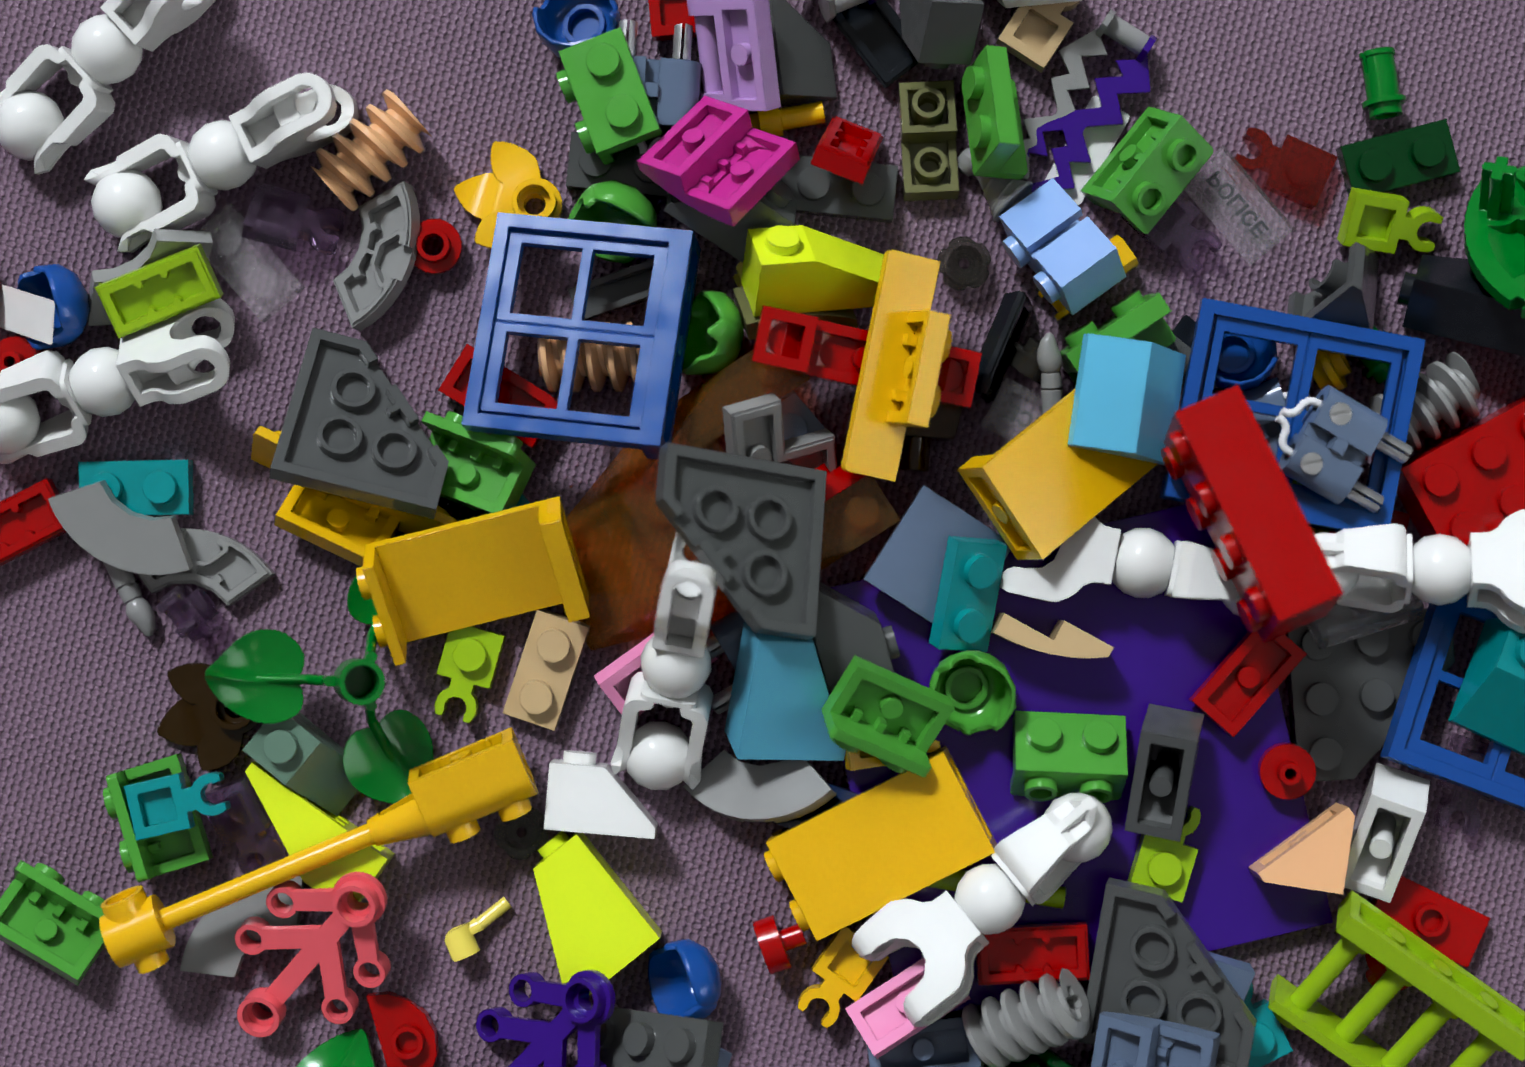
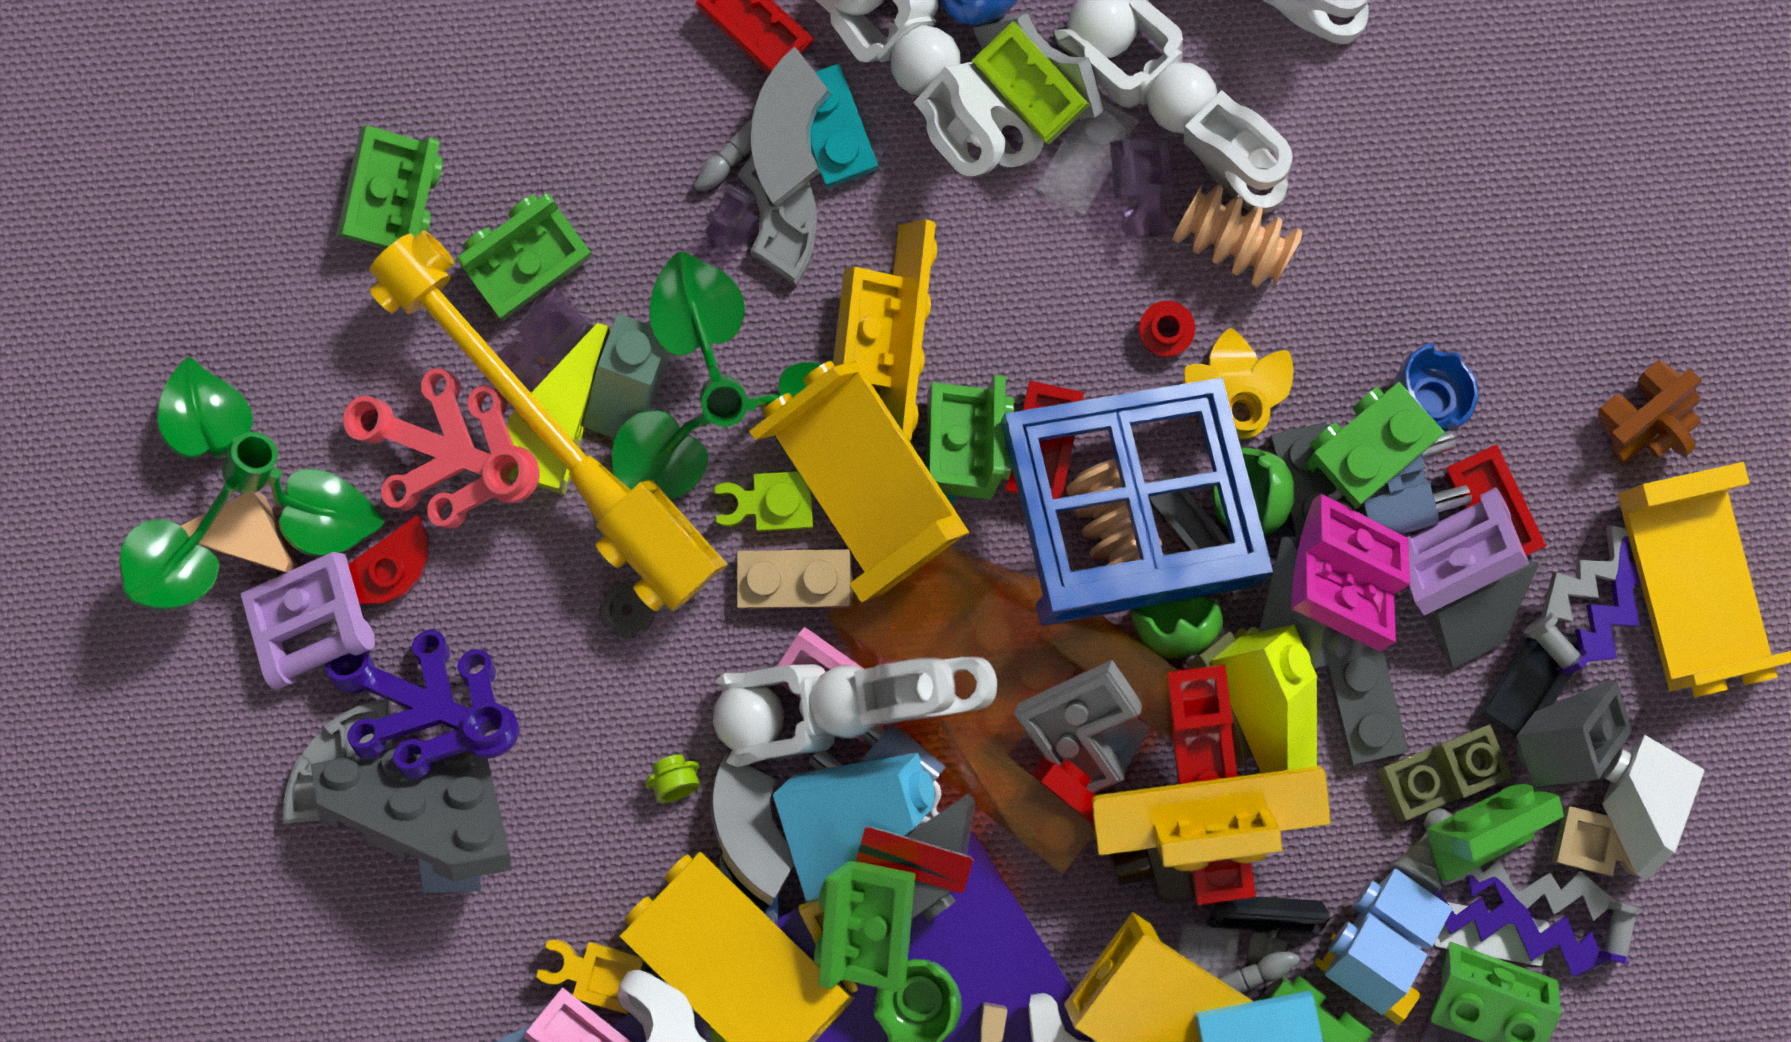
camera: 70 degrees right, 5 degrees down
(167, 803) = (540, 260): teal plate -> none
(202, 719) = (632, 266): dark brown plate -> none
(212, 942) = (419, 349): light grey tile -> none
(356, 432) = (961, 316): dark grey plate -> none
(383, 257) = (1139, 284): light grey tile -> none
(461, 939) = (502, 588): light yellow hand -> none
(589, 909) = (575, 701): neon yellow slope -> none
(593, 800) = (683, 668): white slope -> none
(684, 979) = (538, 818): blue hair -> none
(690, 842) = (673, 778): none -> lime plate
(754, 528) = (1006, 731): dark grey plate -> none
(776, 942) = (603, 897): red tile -> none
(788, 118) = (1411, 620): yellow bar -> none
(847, 149) = (1406, 695): red plate -> none
(847, 640) = (928, 862): none -> red sticker
(915, 552) = (1034, 926): sand blue slope -> none
(967, 593) = (1013, 966): teal plate -> none
(978, 259) = (1351, 850): clear smoke plate -> none

